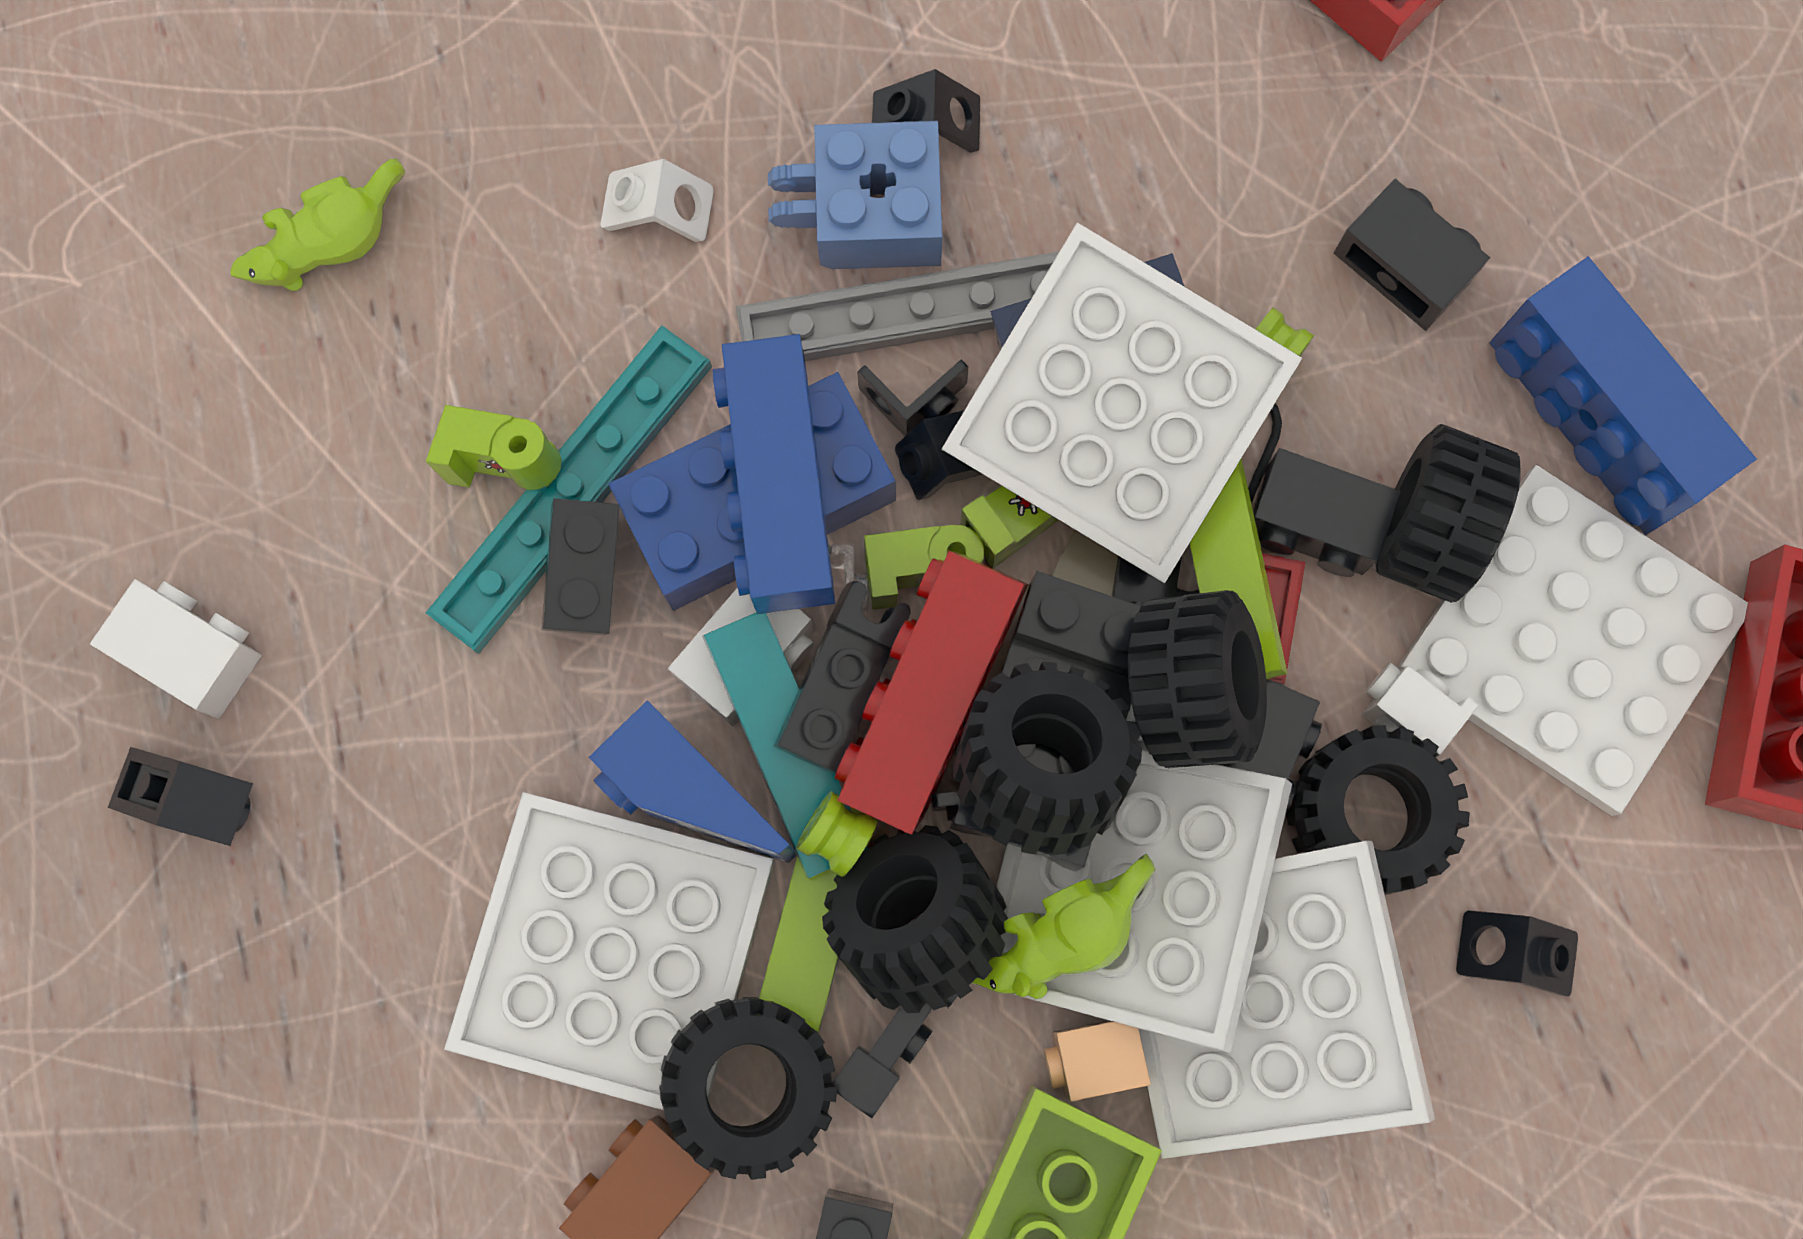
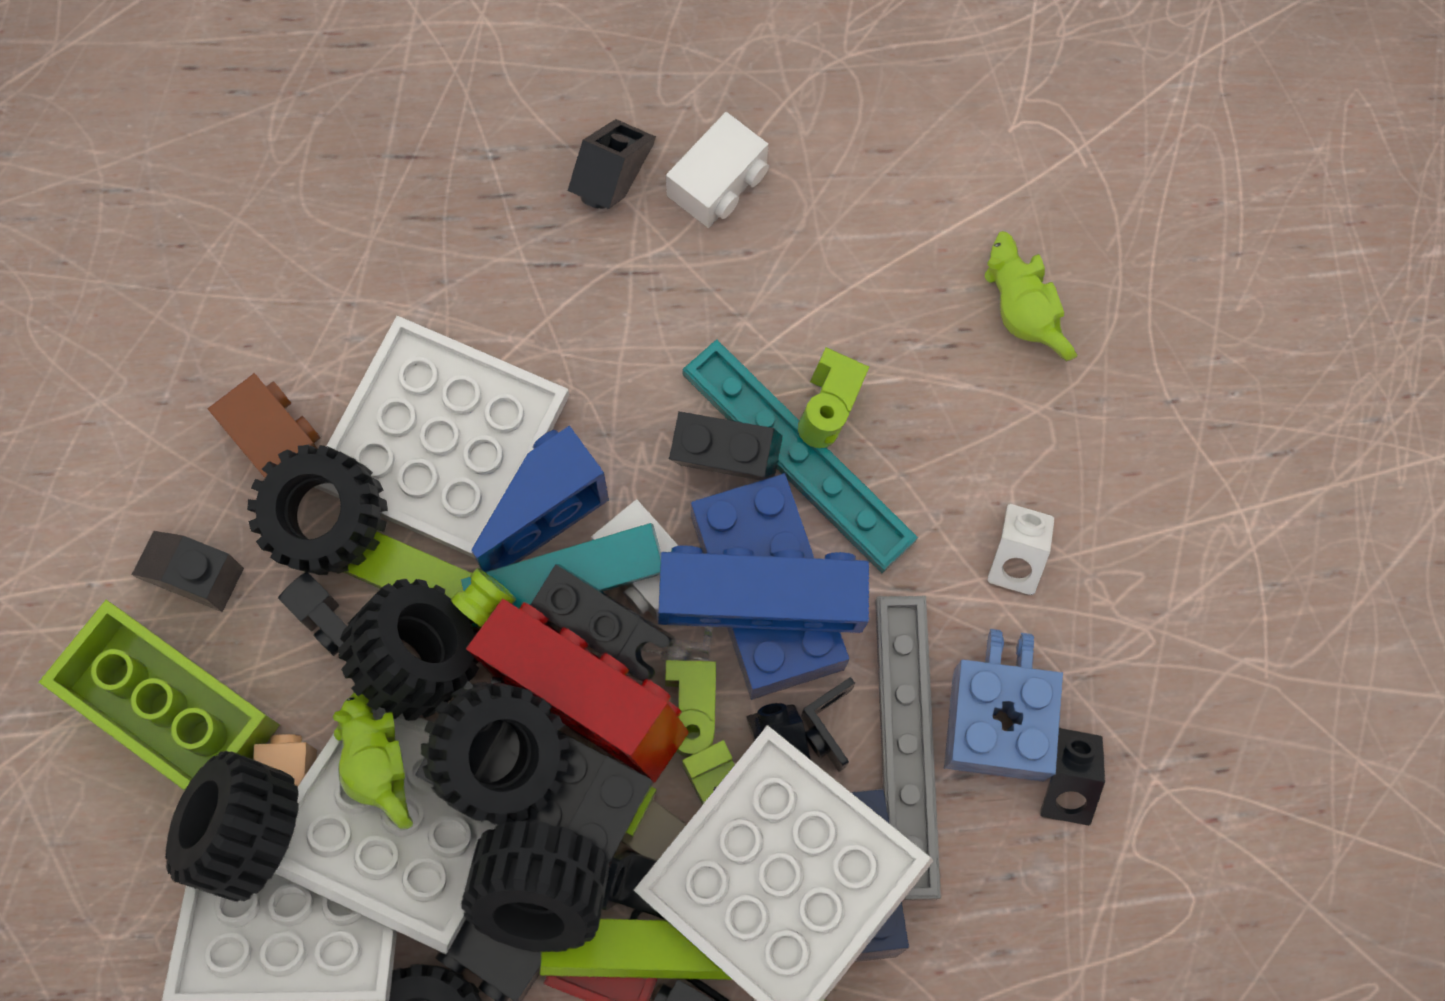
camera: 95 degrees right, 5 degrees down
(1196, 1085) = (232, 827): none -> black tyre

